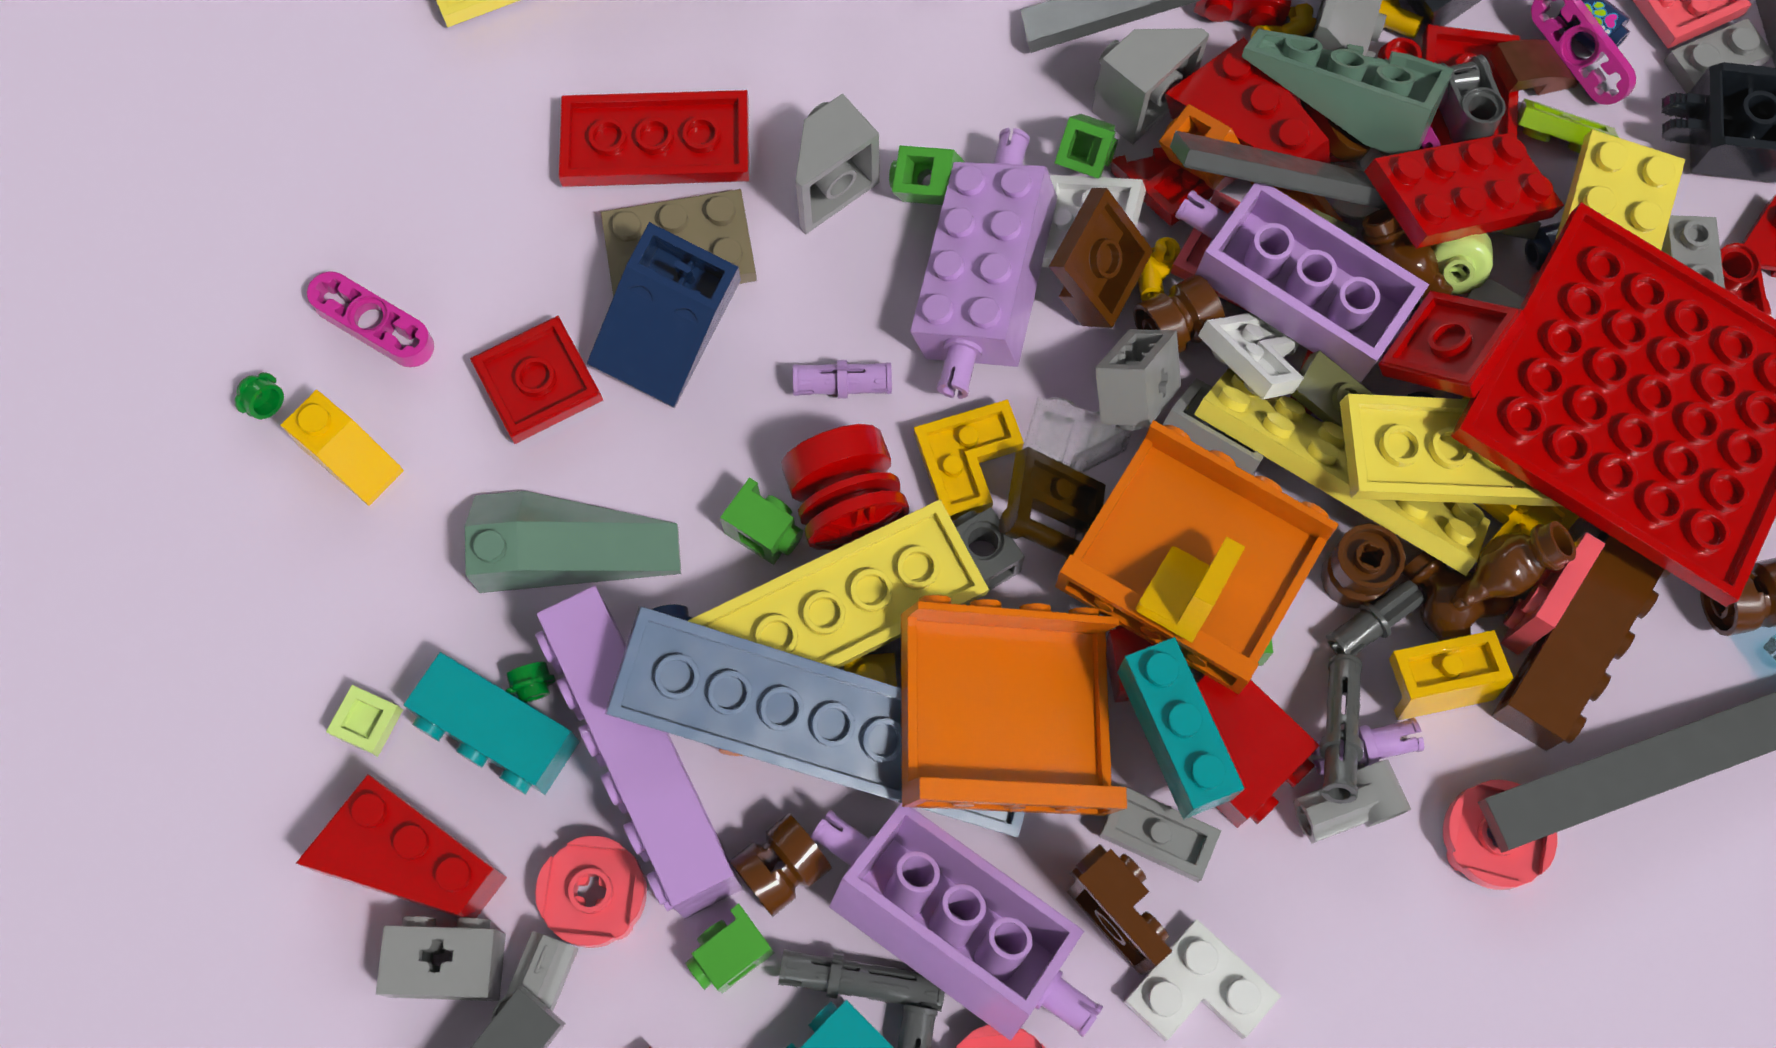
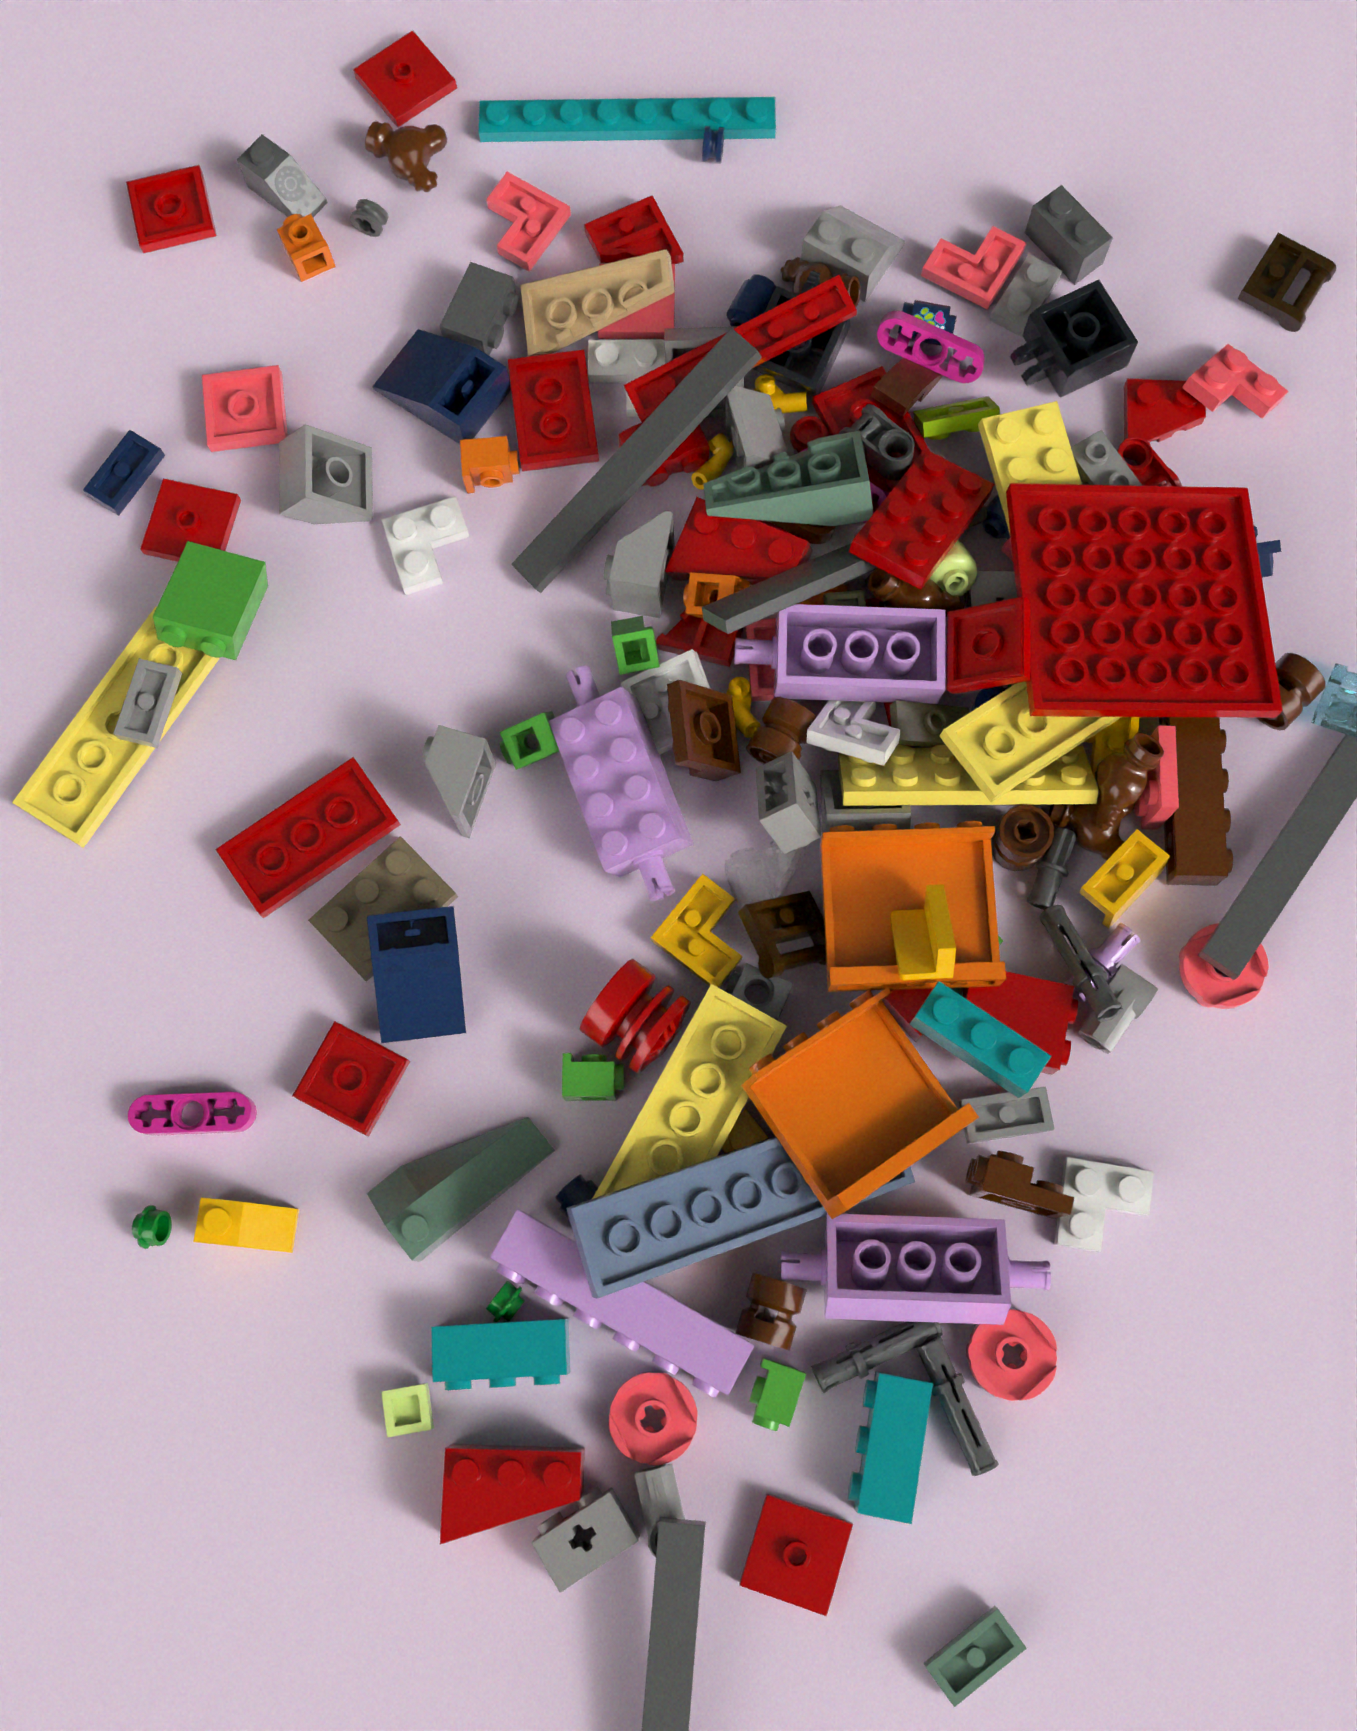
camera: 30 degrees left, 5 degrees up
(842, 379) = (574, 933): lavender pin -> none

